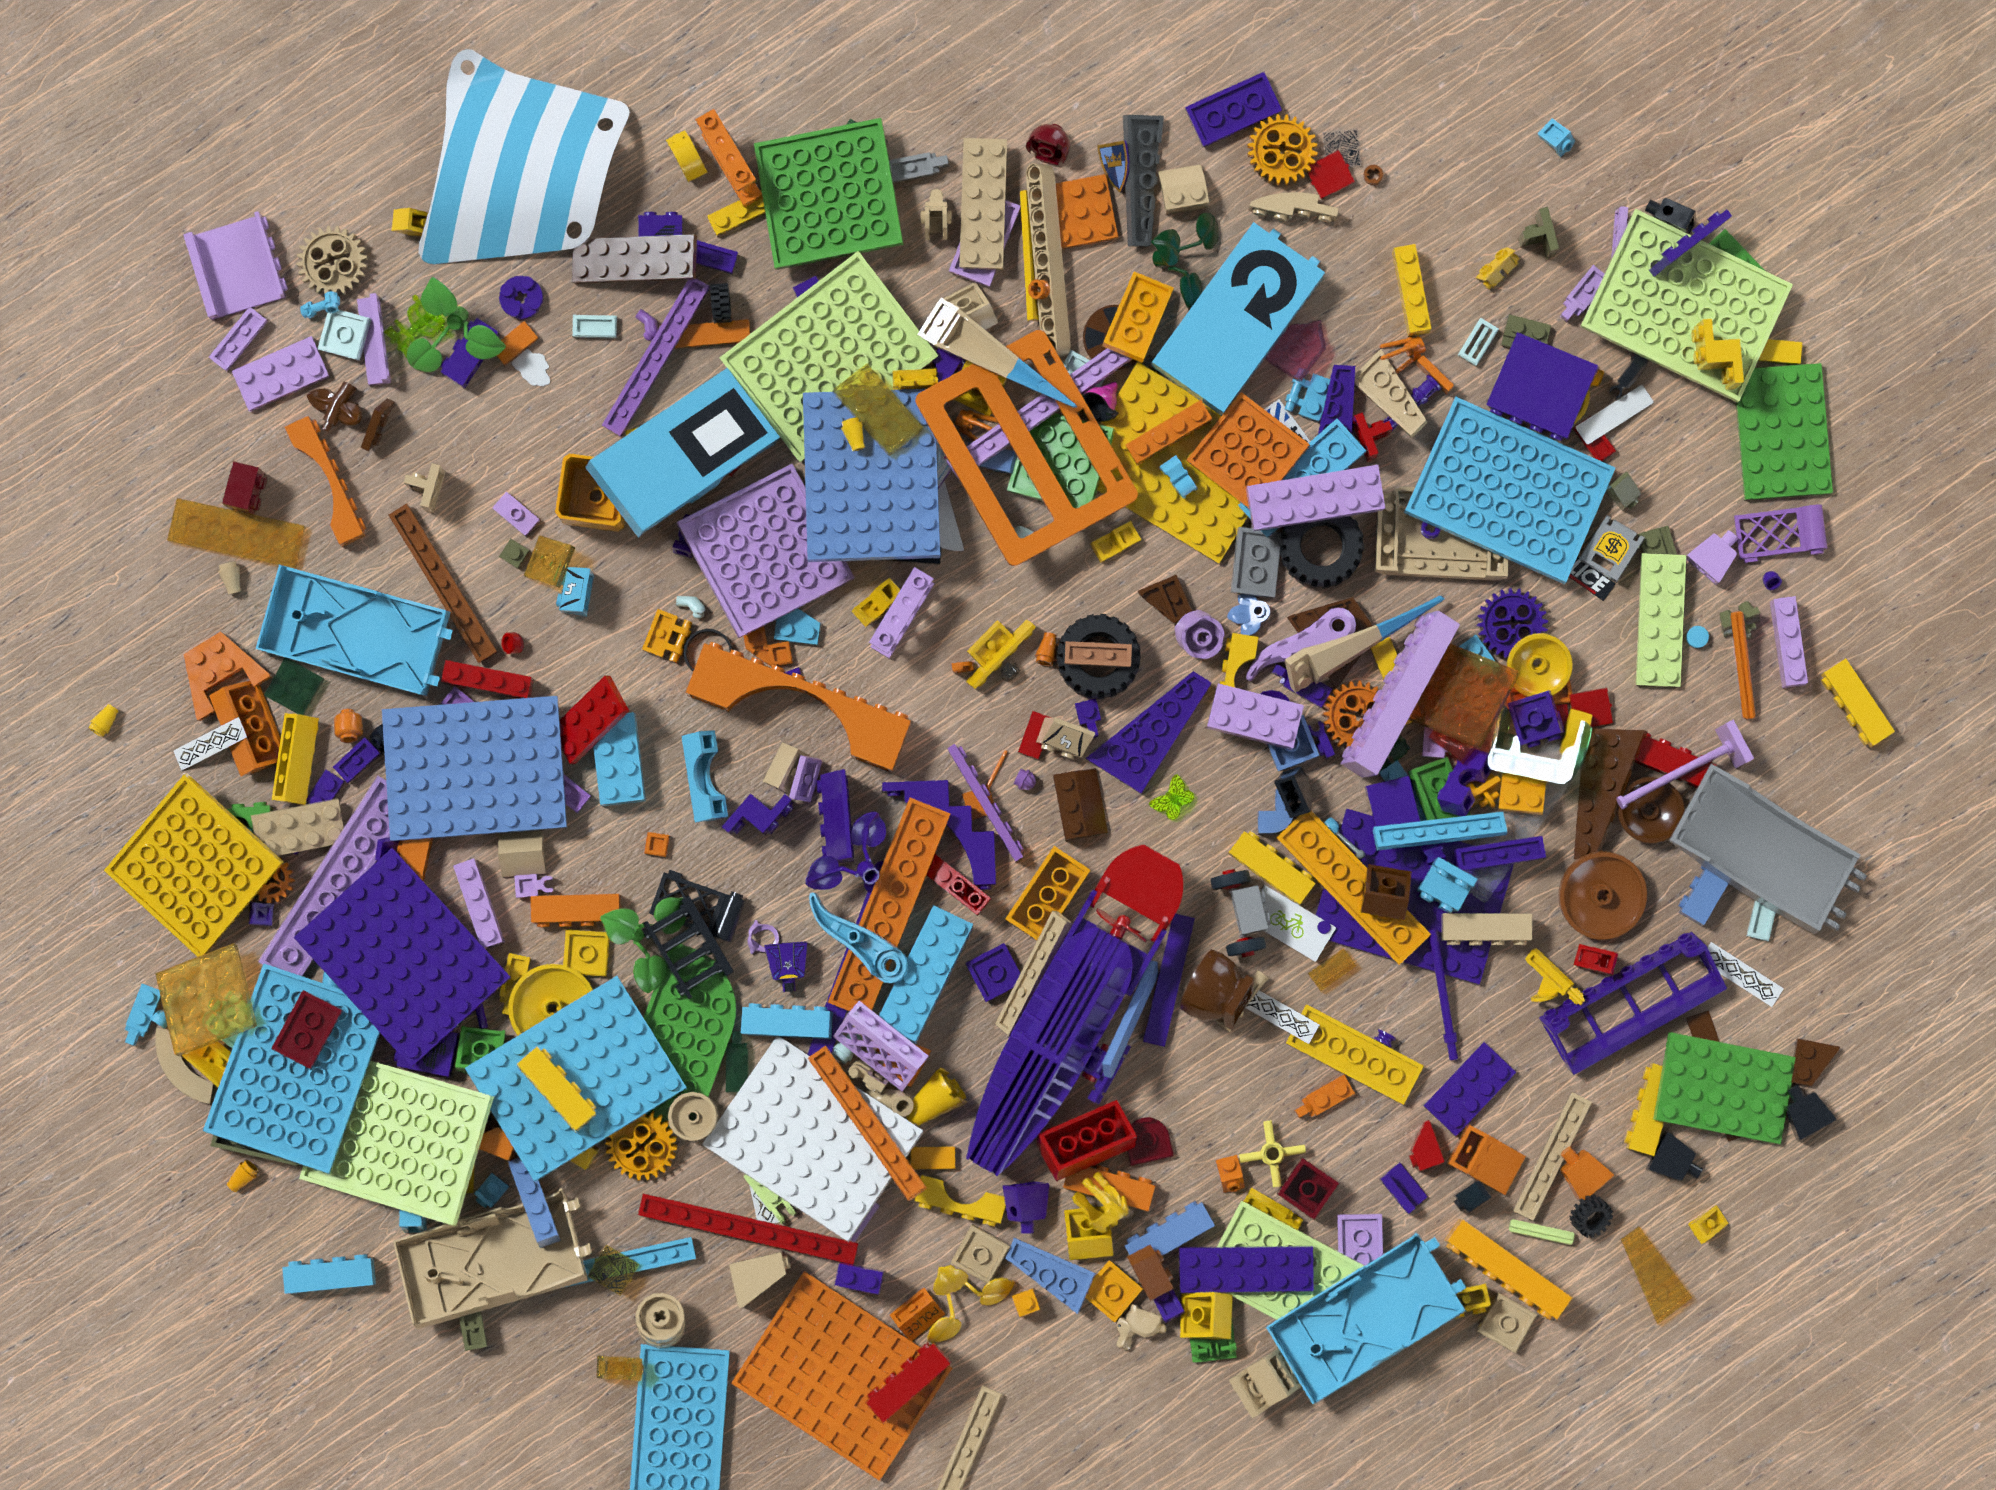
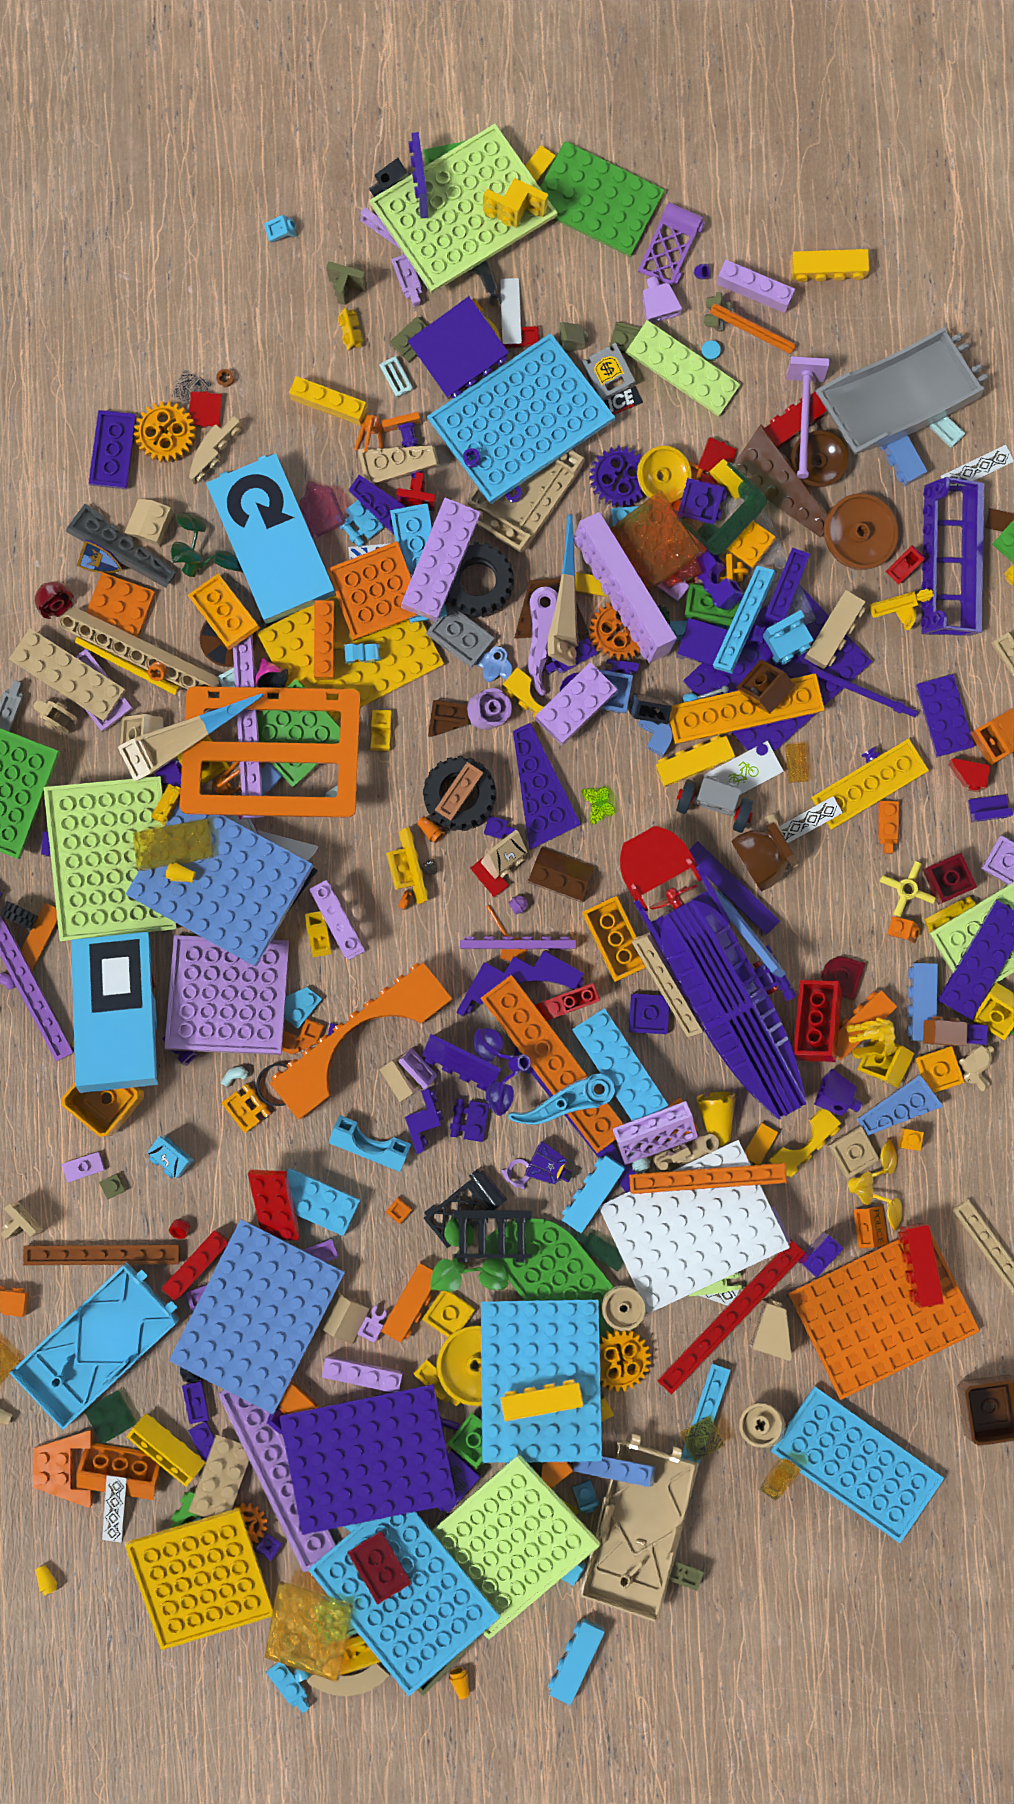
camera: 60 degrees left, 0 degrees up
(348, 726) = (165, 1393): orange head -> none
(549, 561) = (135, 1163): clear yellow tile -> none
(788, 866) = (475, 1121): none -> dark purple plate
(1433, 471) = (469, 452): none -> dark purple bush

